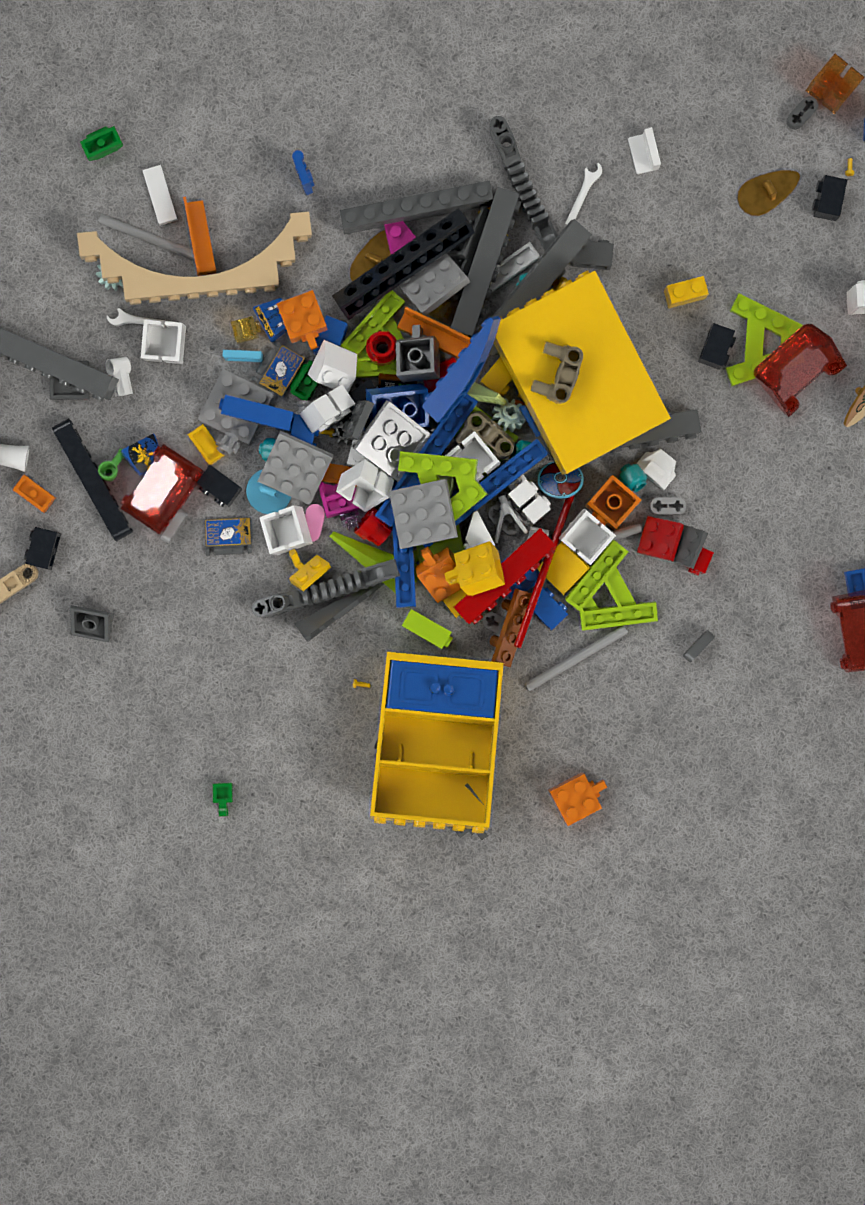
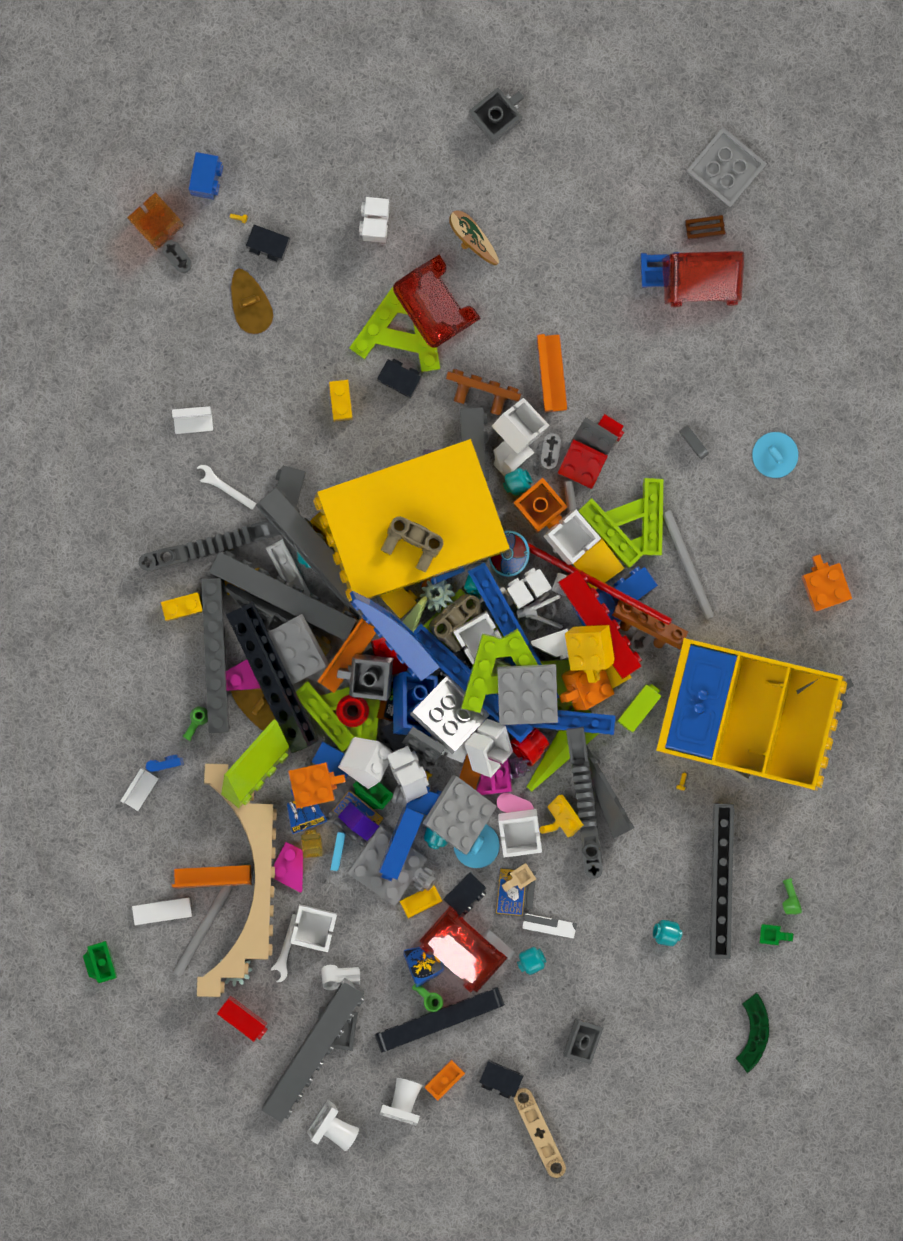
camera: 80 degrees left, 0 degrees up
(64, 286) = (243, 1019): none -> red brick
(124, 796) = (758, 1033): none -> dark green tile
(162, 561) = (531, 961): none -> teal head
(200, 574) = (549, 926): none -> white sticker
(209, 690) = (667, 932): none -> teal head
(220, 312) = (290, 867): none -> dark pink wing
(243, 538) = (521, 877): none -> tan plate
(254, 809) = (792, 904): none -> bright green bar
(267, 737) = (721, 881): none -> dark grey brick
(274, 154) = (139, 789): none -> white panel
(274, 371) = (358, 821): none -> dark purple slope
(314, 257) = (255, 765): none -> lime slope
(348, 199) = (196, 722): none -> bright green bar
(459, 166) = (182, 606): none -> yellow brick
(689, 470) = (520, 425): none -> white piece
(698, 728) = (775, 454): none -> medium azure shield
(722, 412) = (500, 393): none -> dark orange plate
(745, 495) = (552, 373): none -> orange panel

